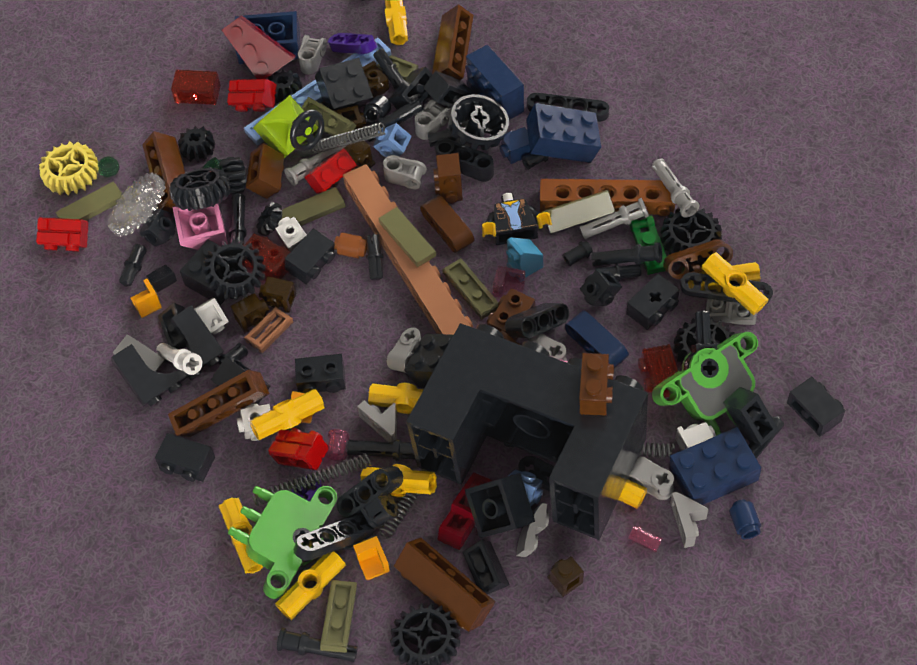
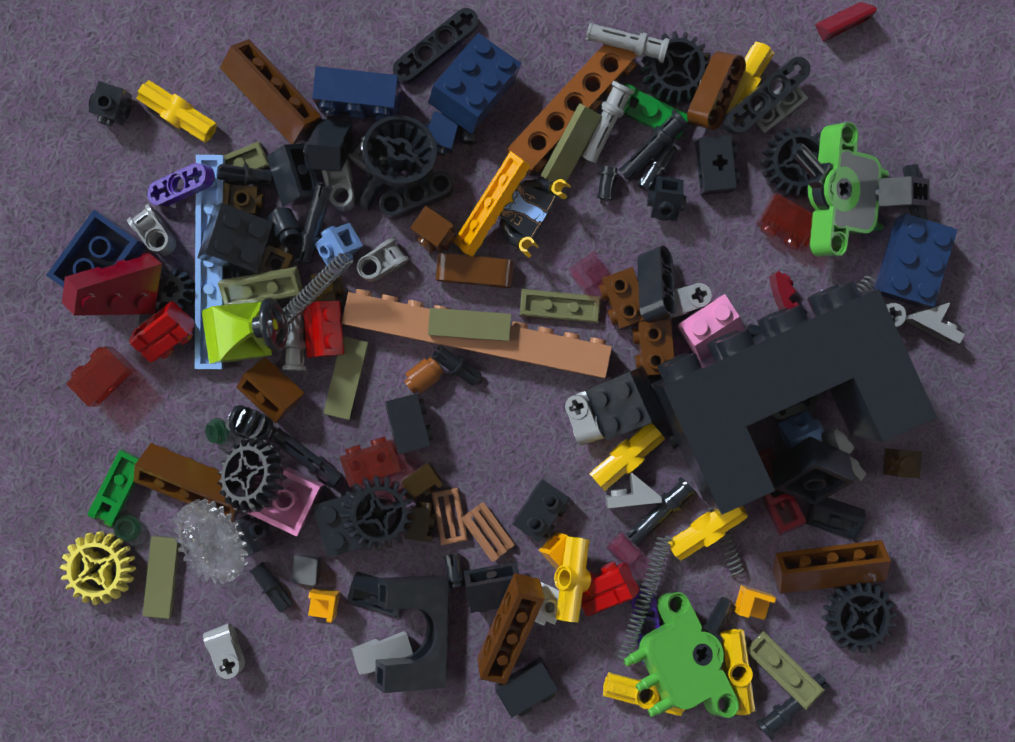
camera: 60 degrees left, 30 degrees up
(62, 233) = (178, 629): red brick -> none
(67, 269) = (224, 647): none -> light grey piece
(125, 144) = (114, 489): none -> green plate
(182, 359) = (433, 627): white pin -> none
(196, 143) = (177, 416): black gear -> none
(212, 316) = (400, 563): white bracket -> none
(269, 219) = (328, 417): black gear -> none
(283, 340) = (496, 527): none -> nougat tile
(287, 225) = (378, 420): white brick -> none
(311, 546) = (723, 625): black beam -> none
(376, 501) = (710, 565): black piece -> none
(505, 192) = (491, 203): none -> light orange plate
(524, 255) = (576, 236): dark azure slope -> none
(594, 384) = (843, 332): reddish brown brick -> none
(595, 338) = (710, 247): dark blue beam -> none
(645, 538) = (927, 367): clear pink pin -> none
(694, 435) = (874, 251): white brick -> none
(745, 294) = (765, 88): yellow piece -> none
(745, 519) = (975, 278): dark blue brick -> none
(816, 406) = (930, 125): black brick -> none
(827, 306) = (845, 20): none -> dark red slope

